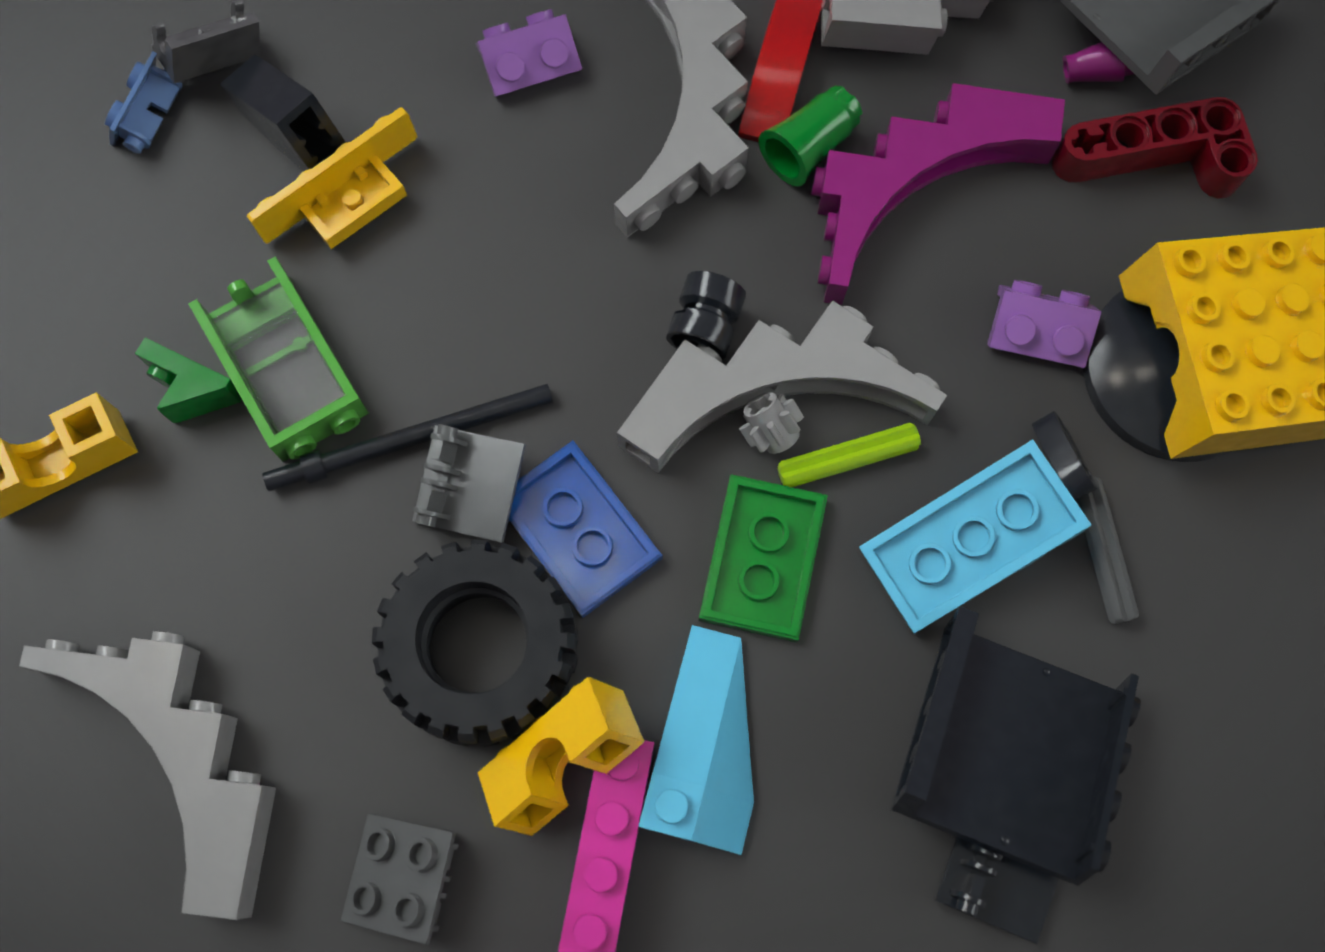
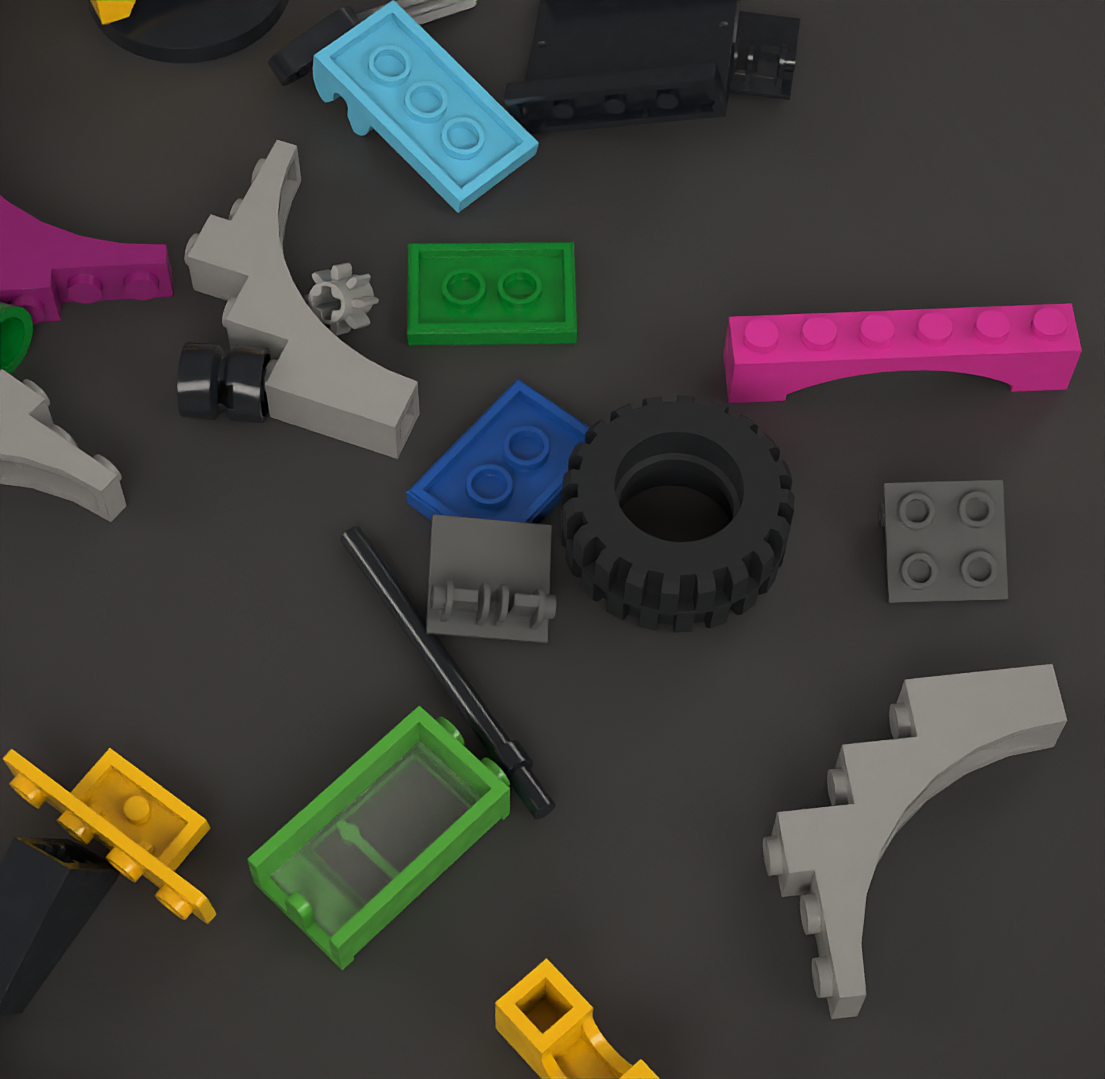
camera: 105 degrees left, 15 degrees down
(192, 387) = (441, 926): green slope -> none
(585, 727) = (734, 356): yellow arch -> none
(704, 761) = (694, 306): medium azure wedge -> none
(849, 455) = (357, 235): lime axle -> none
(1044, 324) = (164, 87): medium lavender bracket -> none

